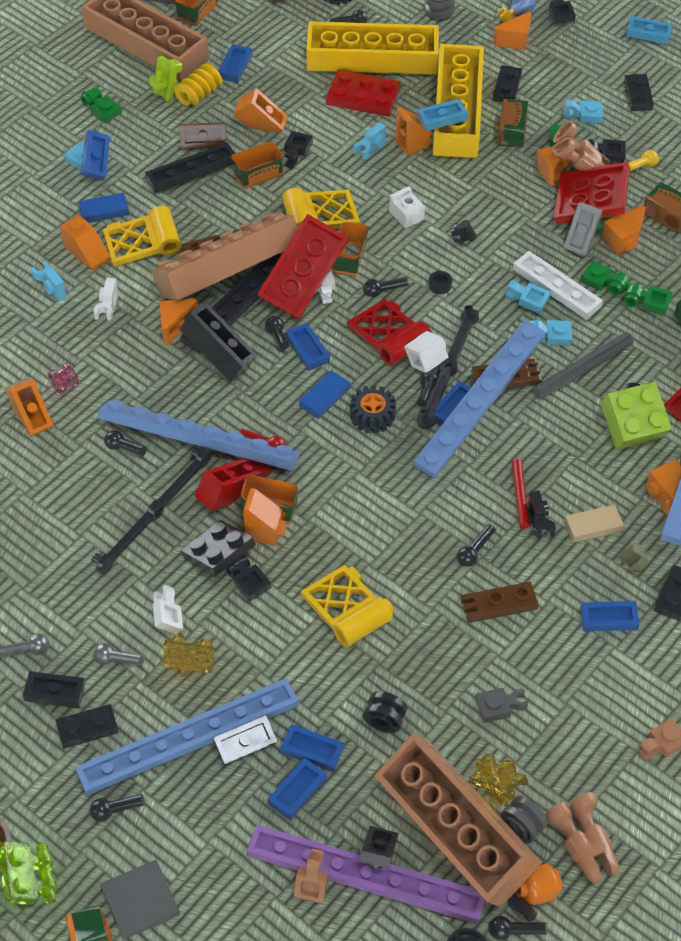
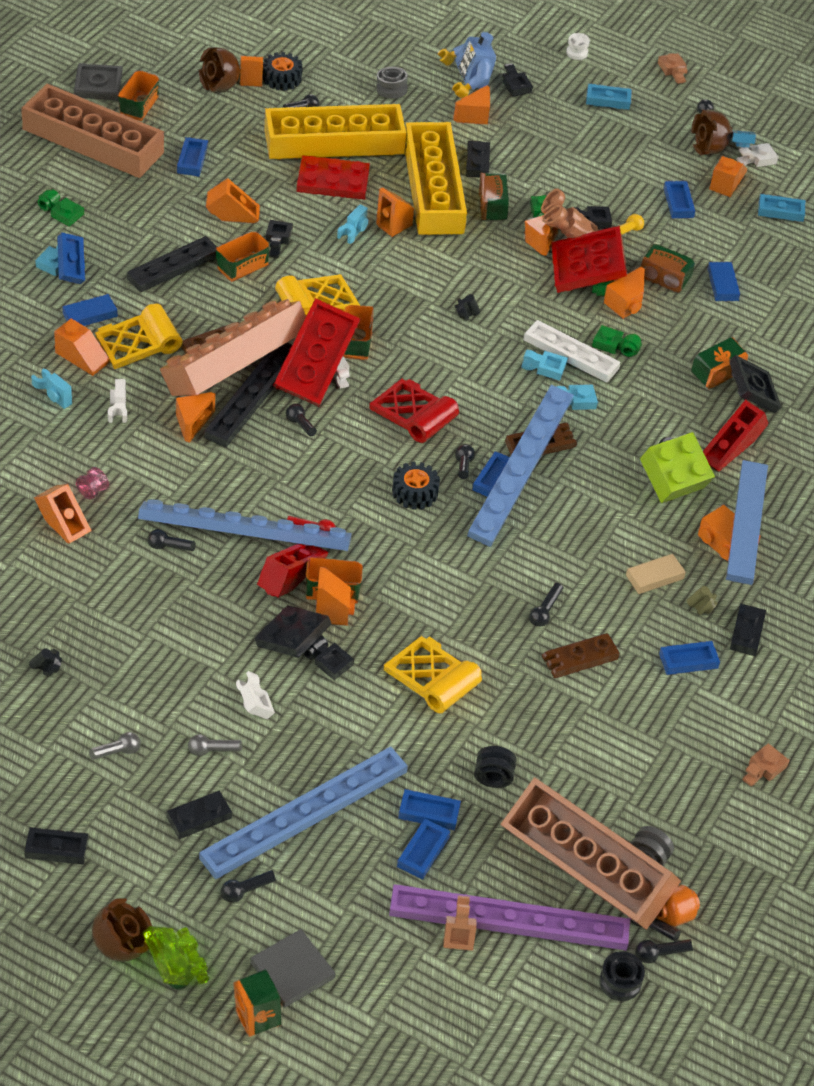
camera: 15 degrees left, 5 degrees down
(54, 689) = (158, 782): black plate -> none
(154, 511) = (219, 601): black piece -> none
(165, 77) = (126, 175): lime hips -> none
(188, 656) = (287, 736): clear yellow hips -> none
(198, 85) = (161, 180): yellow piece -> none
(202, 135) = (177, 230): plate -> none
(218, 342) = (247, 432): black brick -> none
(244, 740) = (362, 809): plate -> none
(307, 346) = (335, 431): blue tile -> none
(324, 394) = (363, 476): blue tile -> none
(374, 288) = (388, 369): black bar -> none
(378, 847) = (519, 890): black plate -> none
(406, 207) = (404, 287): white brick -> none
(426, 351) = (458, 425): white brick -> none
(426, 418) = (472, 488): black piece -> none
(440, 282) = (454, 358): black tile -> none
(442, 114) = (426, 192): dark azure plate -> none
(497, 705) = (600, 751): dark grey plate -> none
(497, 778) = (620, 817): clear yellow hips -> none
(520, 493) = (578, 552): red bar -> none
(538, 510) = (600, 567): black plate -> none
(583, 229) = (587, 294): light grey plate -> none
(583, 365) = (613, 426): dark grey axle -> none
(586, 111) = (562, 179): medium azure plate -> none
(586, 845) = (716, 865): nougat piece -> none
(638, 92) = (610, 158): black plate -> none
(654, 300) = (669, 356): green plate -> none

